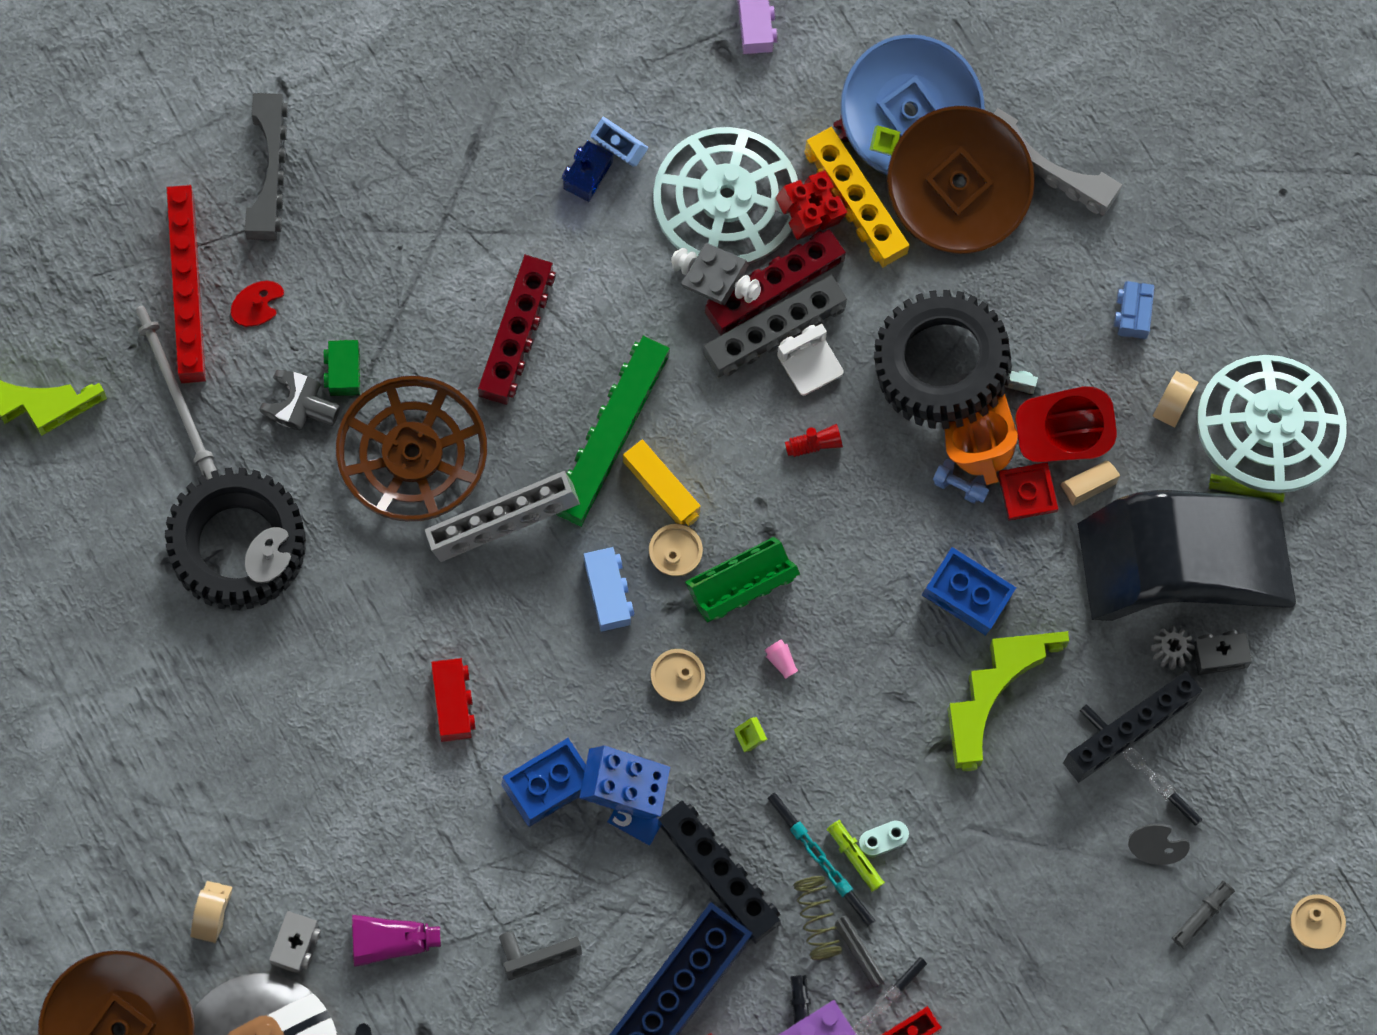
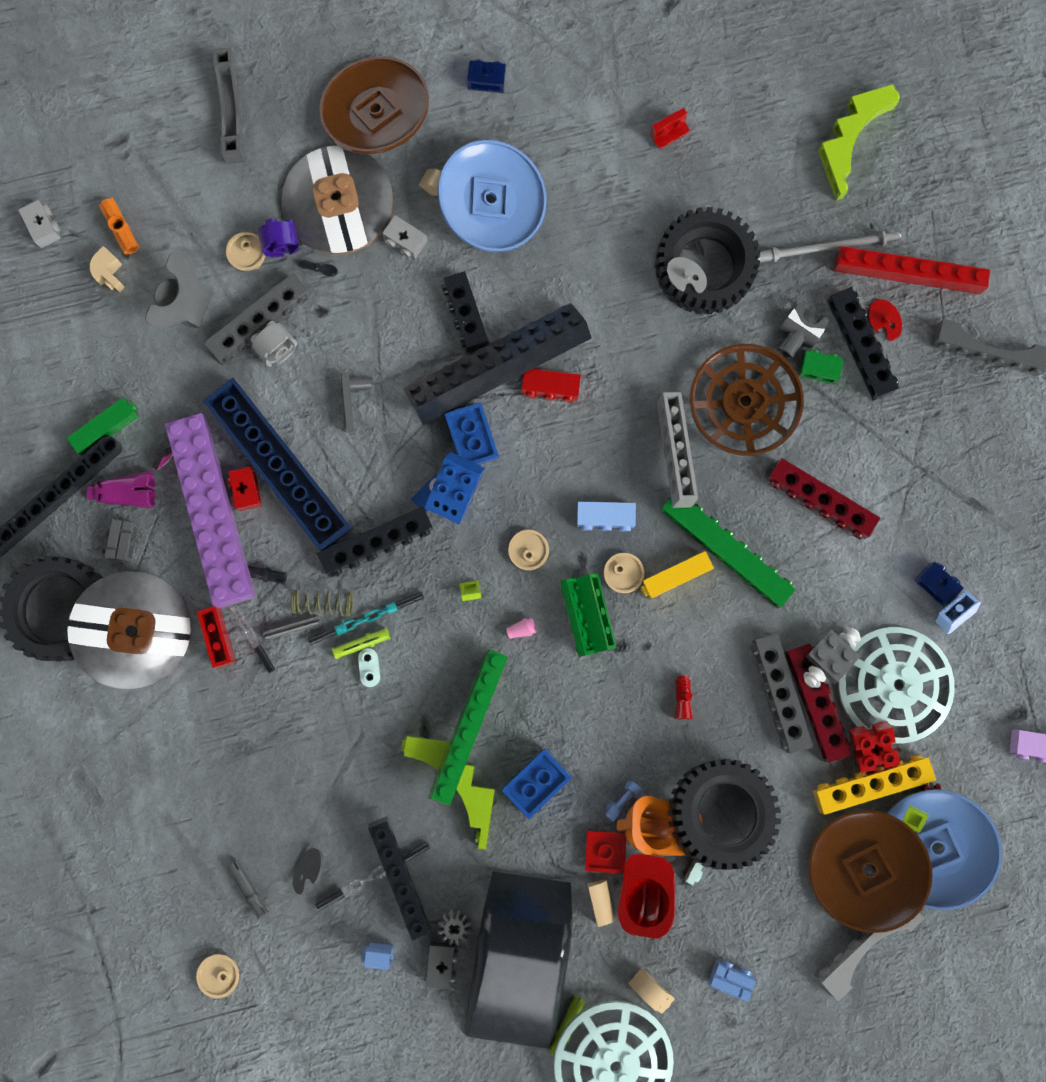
camera: 105 degrees right, 10 degrees up
(43, 904) = (479, 81): none -> clear blue brick
(60, 628) = (670, 129): none -> red bracket
(206, 805) = (498, 171): none -> medium blue dish
(295, 335) = (860, 353): none -> black brick
(387, 939) = (390, 298): magenta piece -> none
(408, 807) = (460, 283): none -> black brick
(443, 771) = (497, 363): none -> black brick
(809, 360) = (748, 712): white bracket -> none
(925, 687) = (467, 728): none -> green brick
(1232, 727) = (377, 956): none -> medium blue brick

